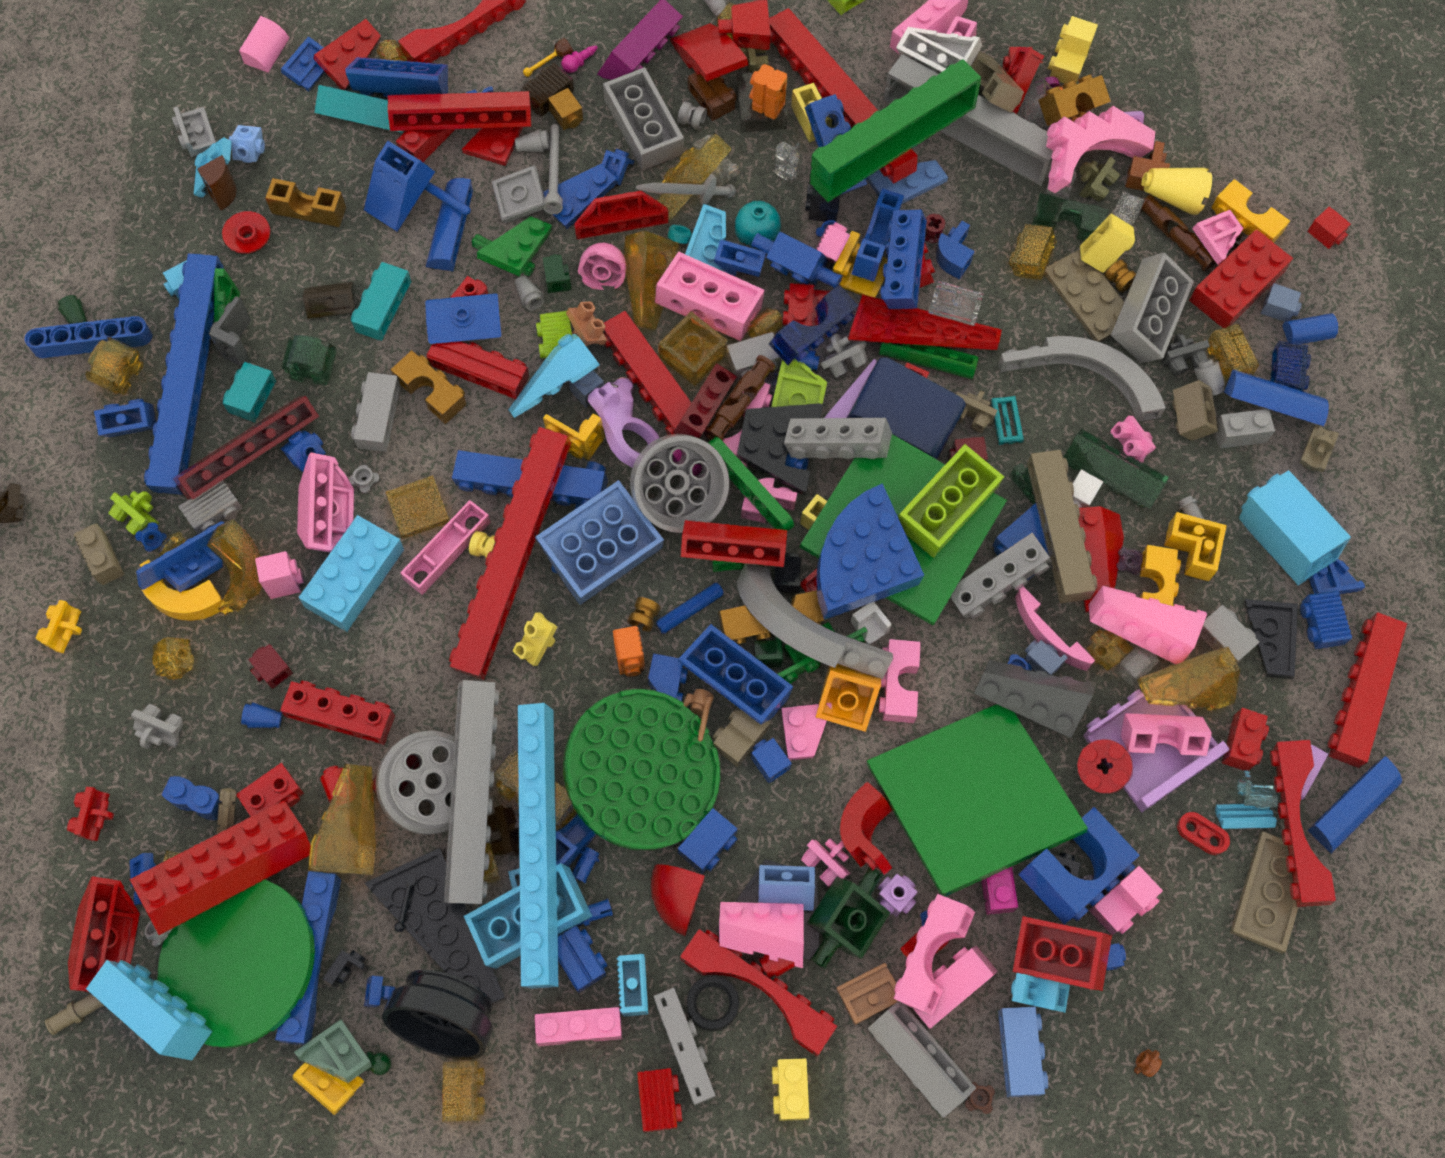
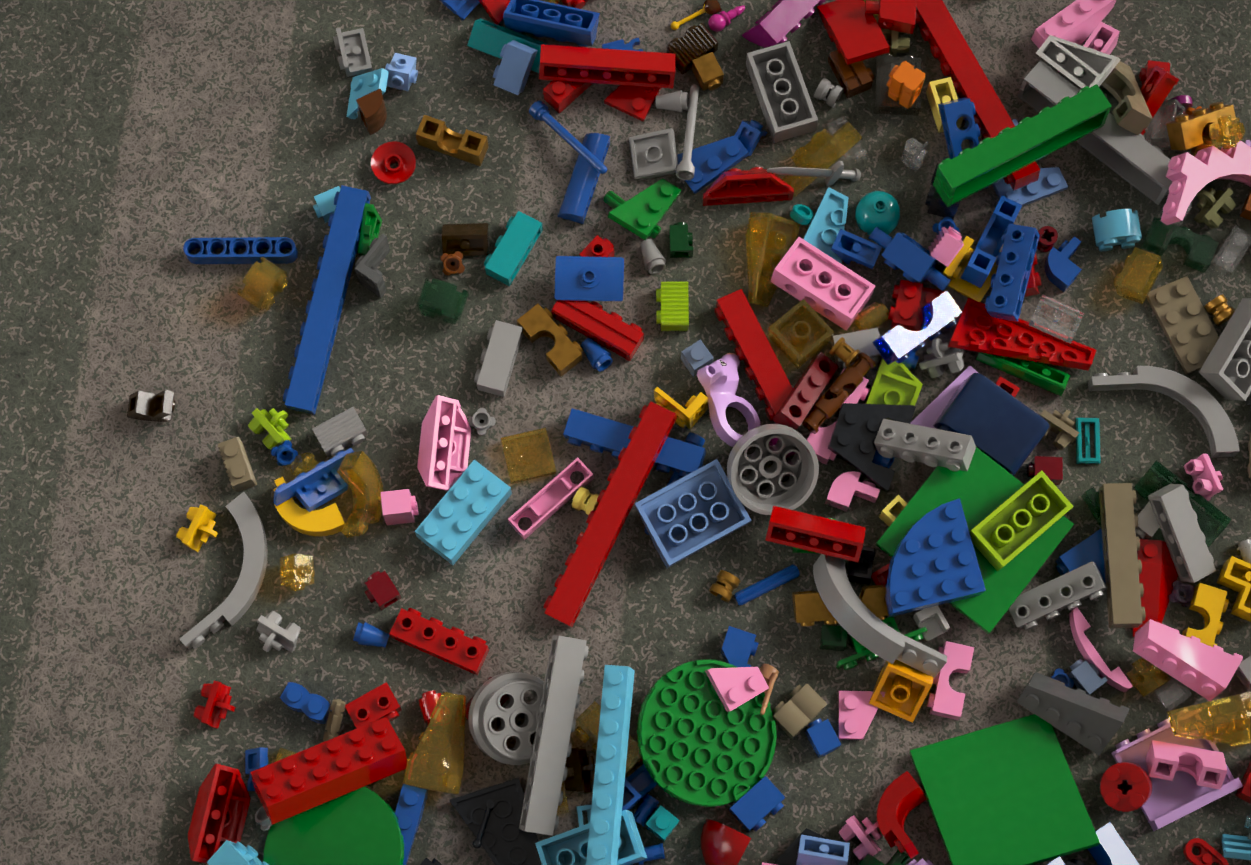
camera: 10 degrees right, 5 degrees up
(72, 309) = (227, 223): dark green cone -> none
(119, 677) = (250, 577): none -> light grey arch
(125, 419) = (275, 337): blue brick -> none
(245, 447) = (378, 380): dark red brick -> none
(249, 391) = (383, 323): teal brick -> none
(300, 447) = (429, 385): blue brick -> none
(321, 317) = (452, 269): none -> dark orange plate
(364, 124) = (514, 67): none -> medium blue brick
(395, 185) = (538, 135): blue slope -> none
(481, 397) = (596, 354): none -> blue cone
(536, 639) = (625, 596): light yellow hips -> none
(566, 362) = (677, 338): medium azure wedge -> none
(585, 325) = (702, 299): nougat hips -> none
(600, 263) = (726, 239): bright pink cylinder -> none
(605, 876) = (662, 823): none -> teal brick
(629, 651) = (707, 621): orange brick -> none
(668, 712) = (736, 685): none -> bright pink wing
(736, 675) = (802, 656): blue slope -> none
(740, 357) = (844, 352): none -> pearl gold bush
(753, 489) = (838, 481): green beam -> none
(1004, 209) = (1117, 228): none -> medium azure brick
(1072, 50) = (1210, 70): light yellow brick -> none
(1092, 94) = (1219, 135): none -> clear yellow brick
(1107, 243) = (1210, 278): light yellow brick -> none
(1121, 495) = (1182, 533): none -> light grey brick

